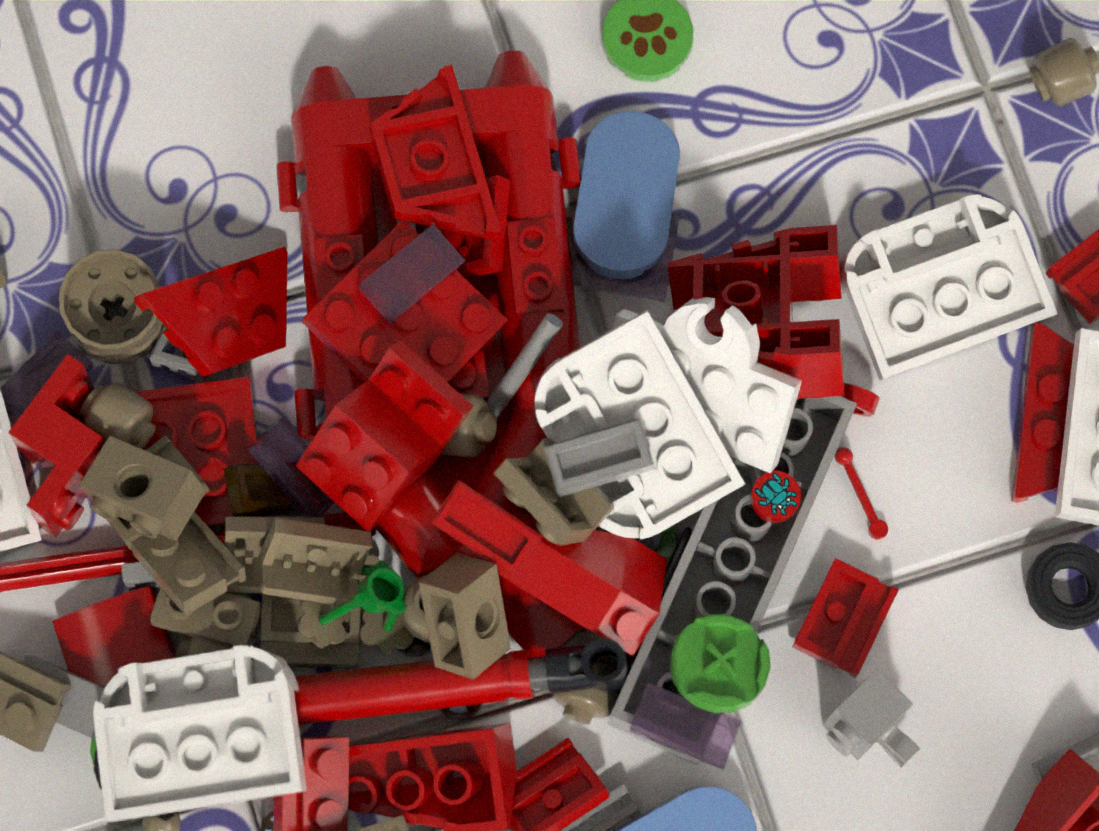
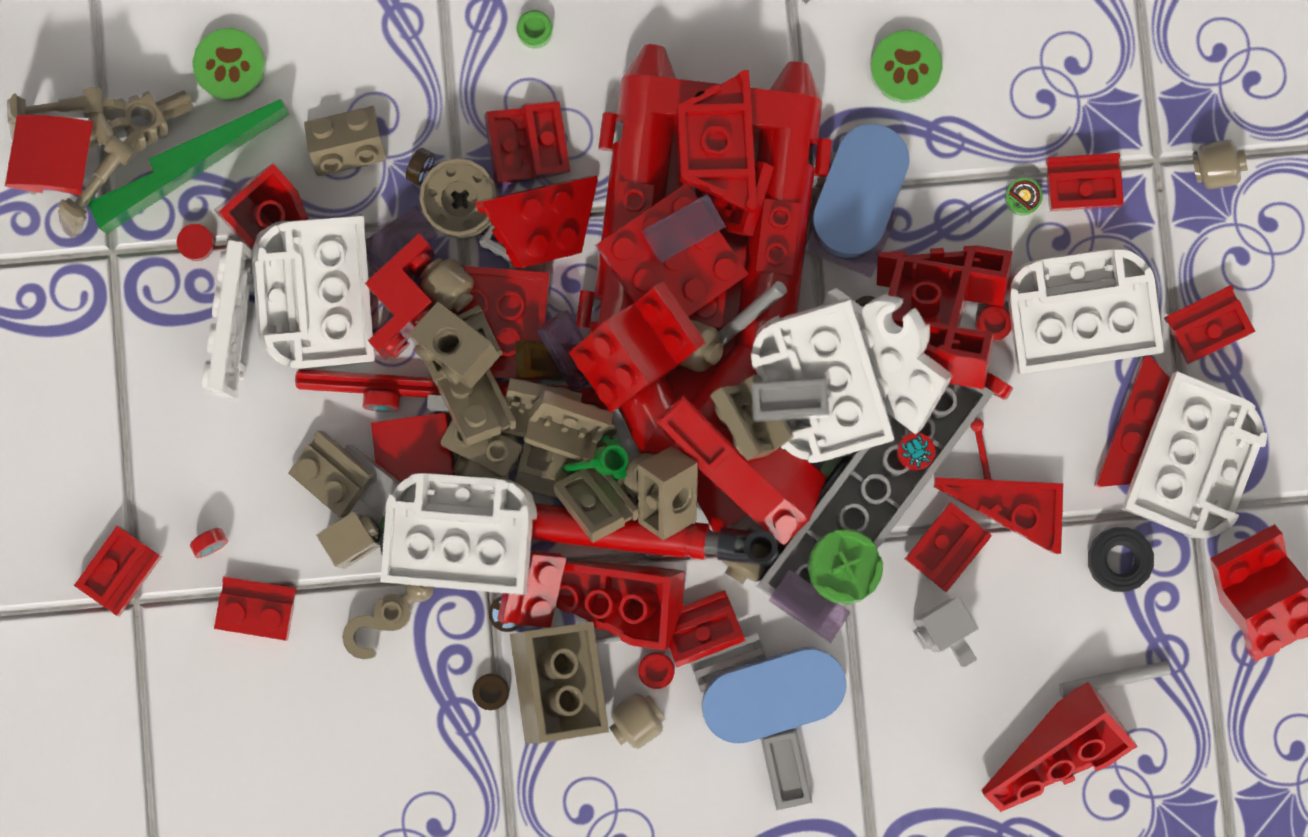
camera: 20 degrees right, 10 degrees up
(50, 279) = (419, 166): none -> dark brown tile
(54, 775) = (350, 539): none -> dark tan brick
(60, 589) = (381, 401): none -> red tile
(167, 84) = (534, 29): none -> bright green tile
(186, 224) = (527, 142): none -> red slope
(372, 652) = (595, 502): none -> dark tan plate
(832, 162) = (1023, 196): none -> tile
(838, 310) = (994, 320): none -> red tile
(904, 128) = (1084, 182): none -> red plate
(926, 545) = (1021, 506): none -> red wing

